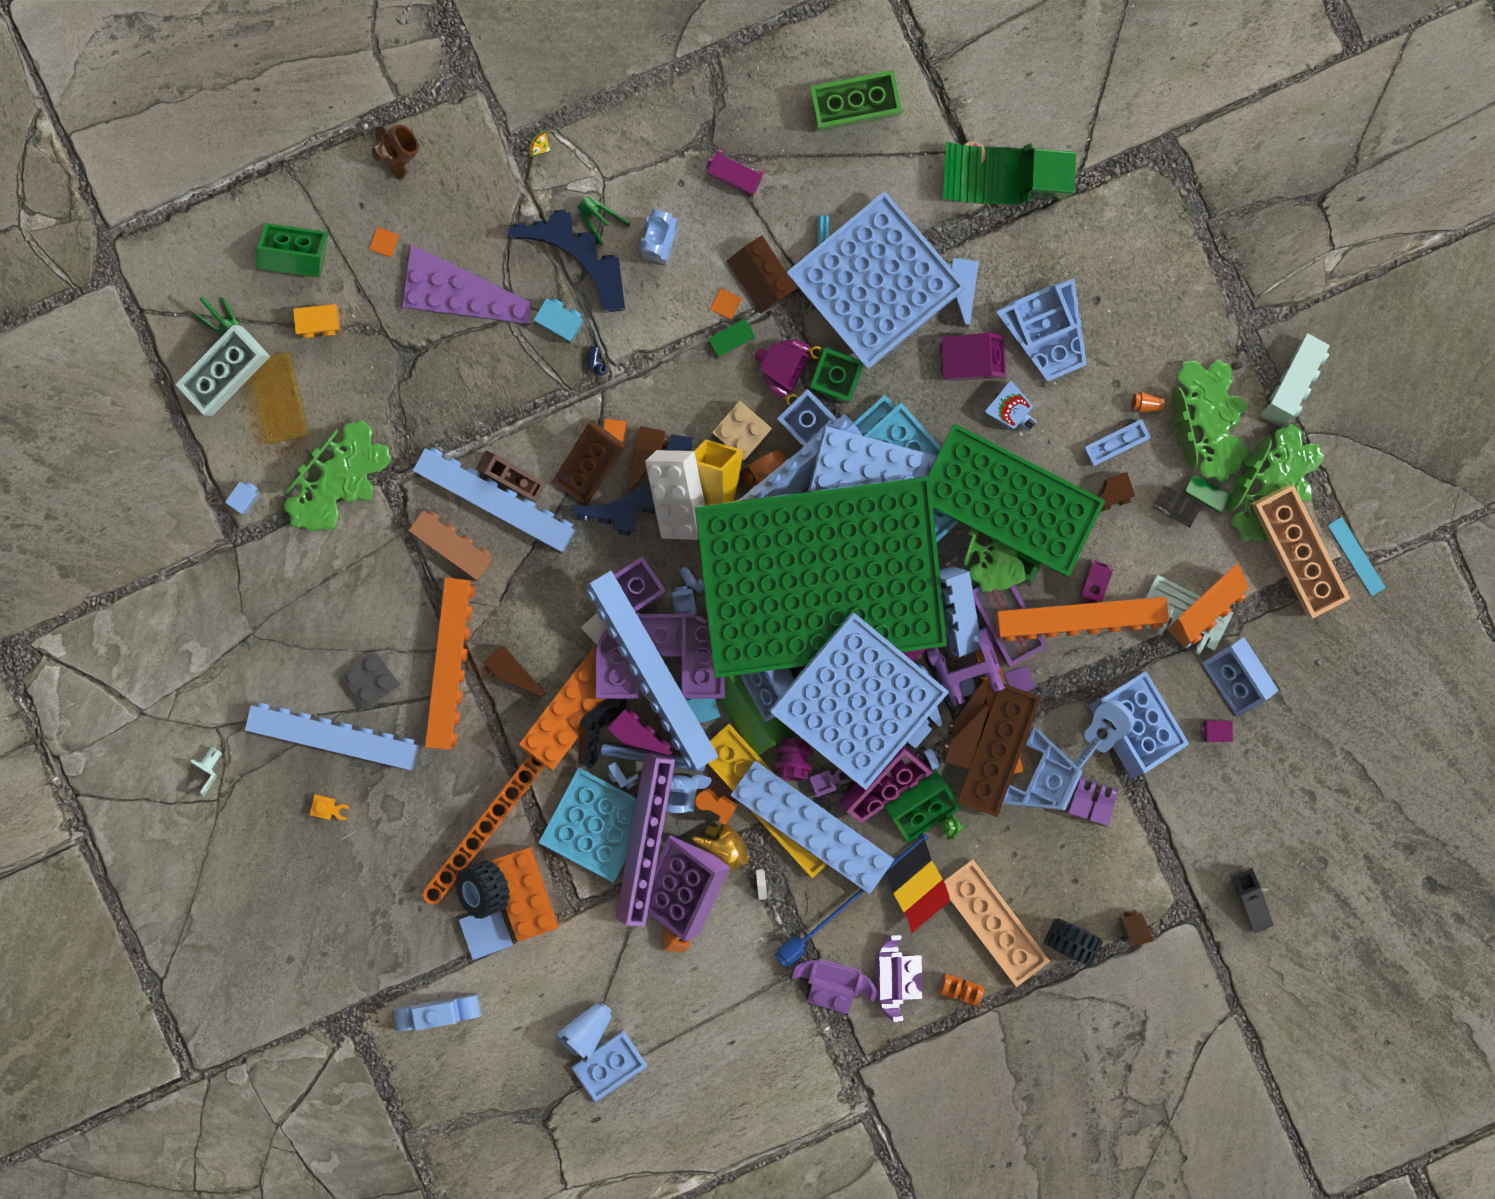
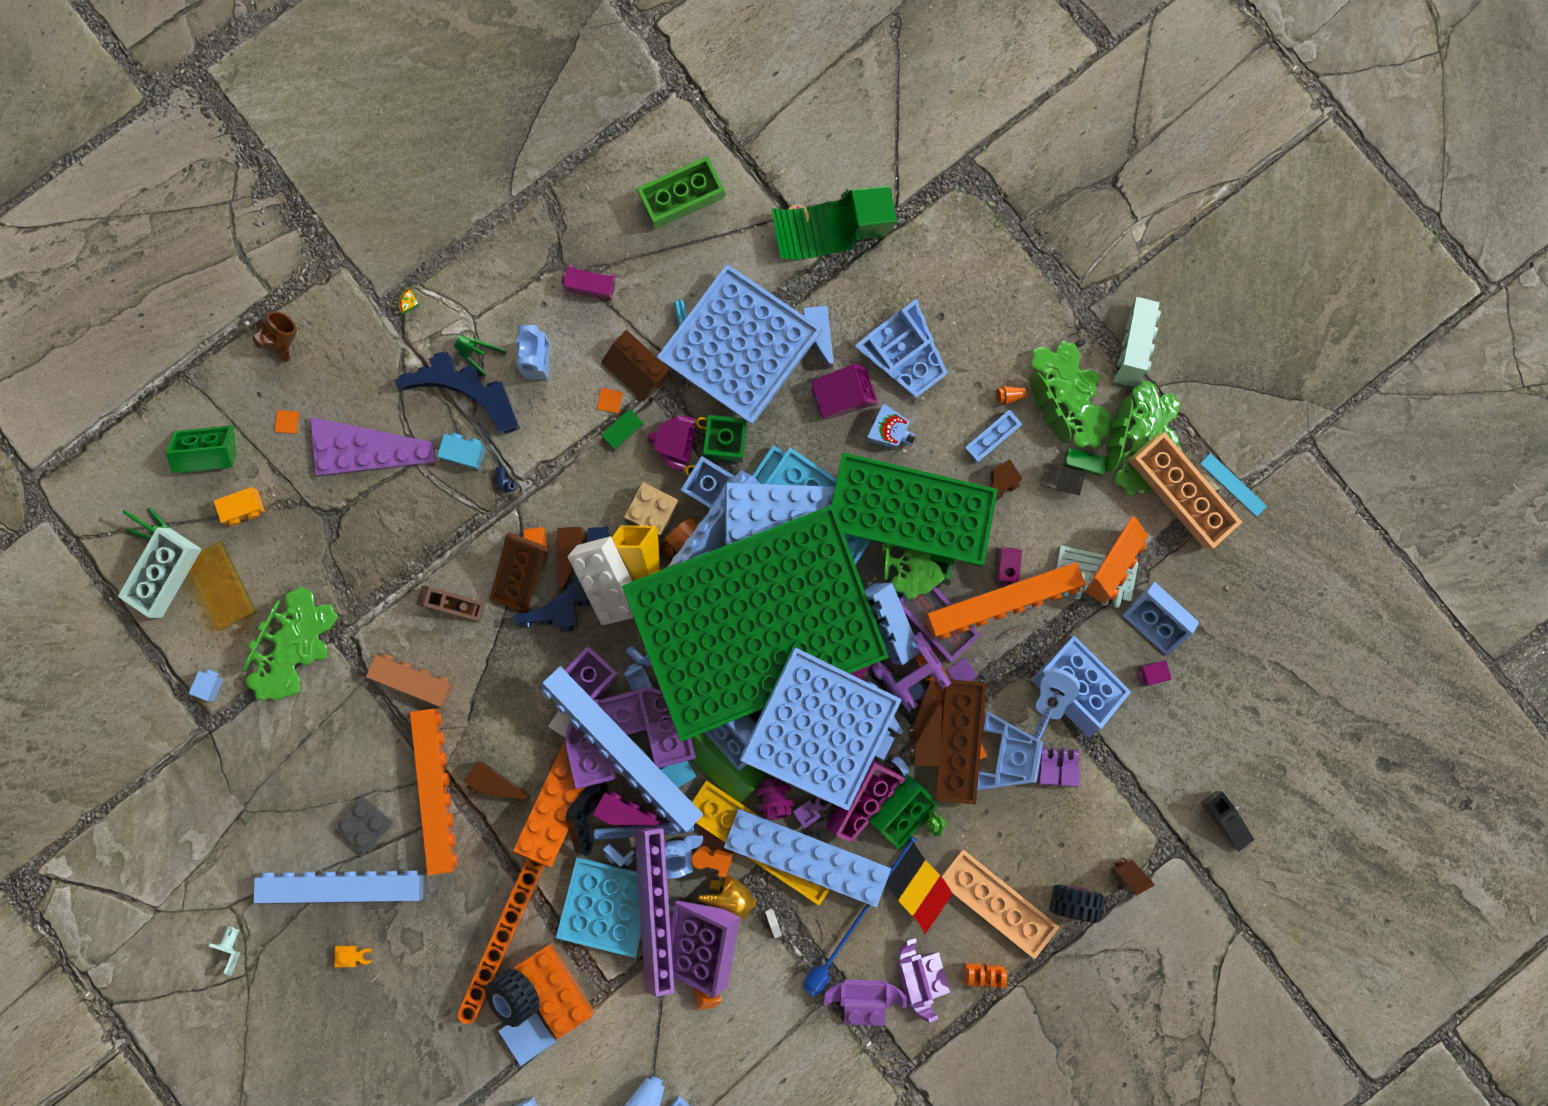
camera: 20 degrees left, 5 degrees down
(494, 500) = (440, 629): light blue brick -> none

